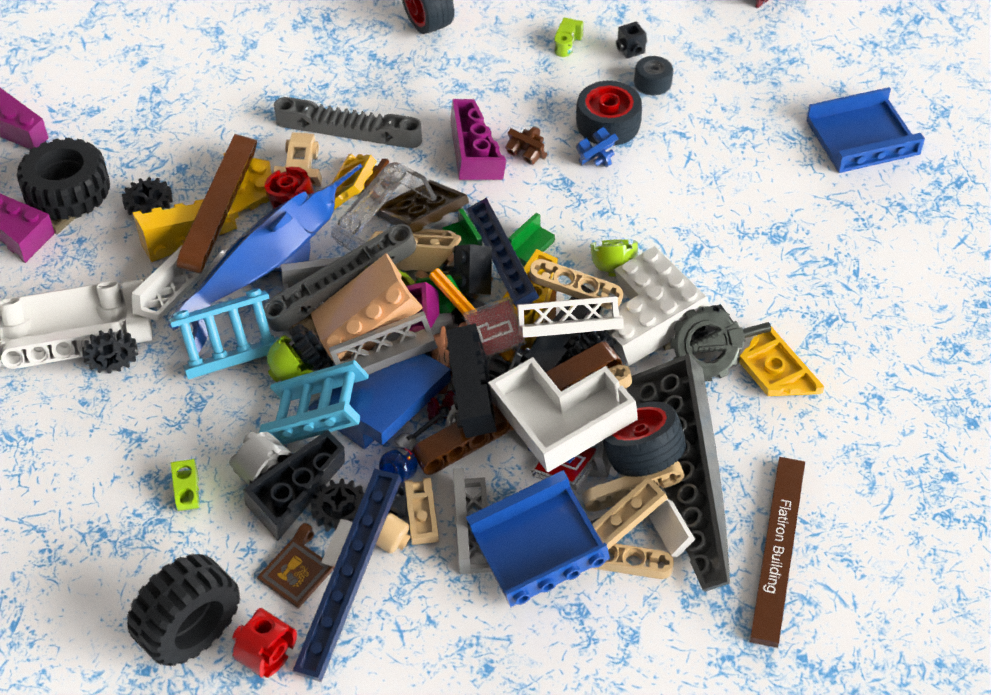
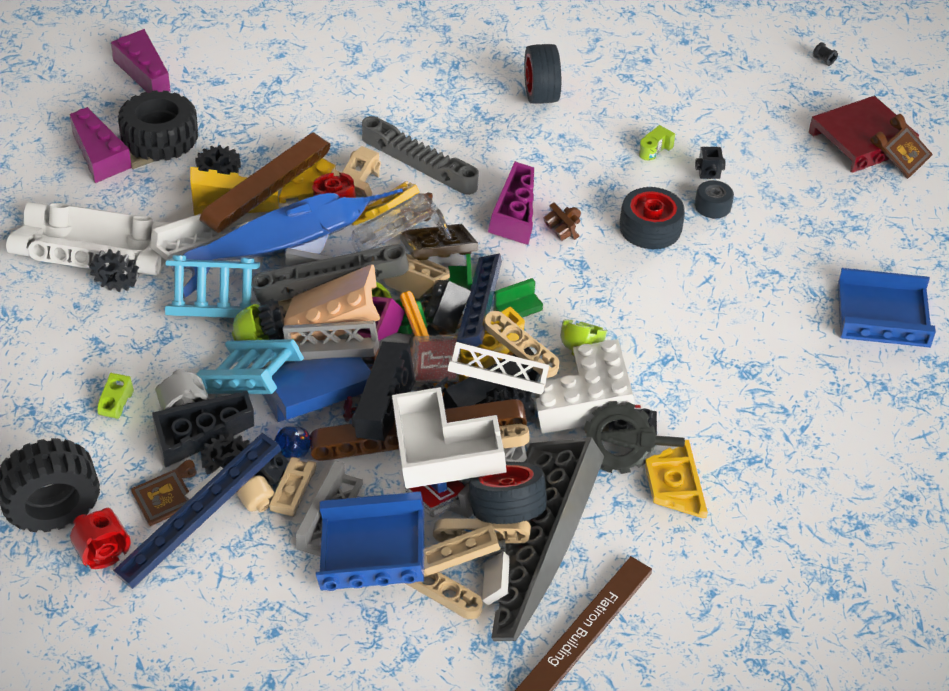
camera: 20 degrees right, 5 degrees down
(409, 440) = (312, 423): hinge -> none
(589, 152) = (624, 246): blue hips -> none

